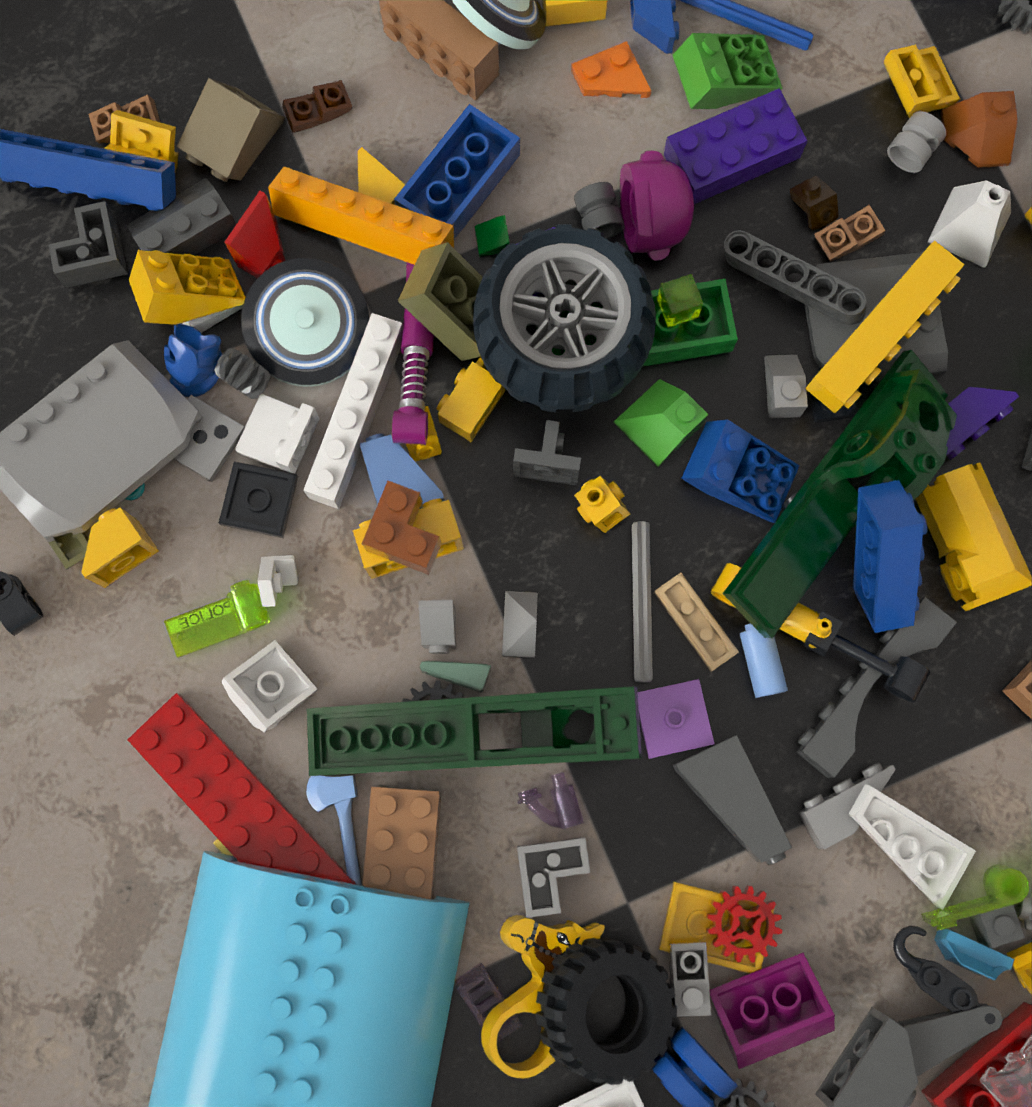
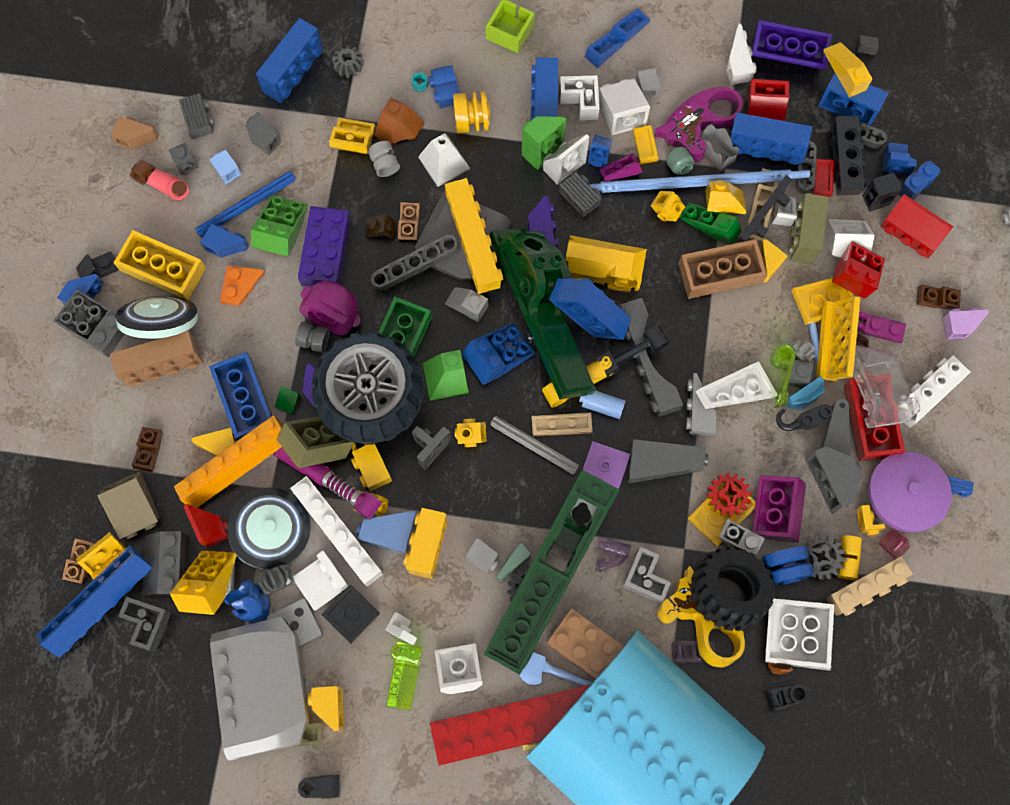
camera: 60 degrees left, 5 degrees down
(393, 533) = (425, 546): dark orange brick -> none
(519, 624) = (507, 514): light grey slope -> none
(679, 300) = (393, 325): clear neon green brick -> none

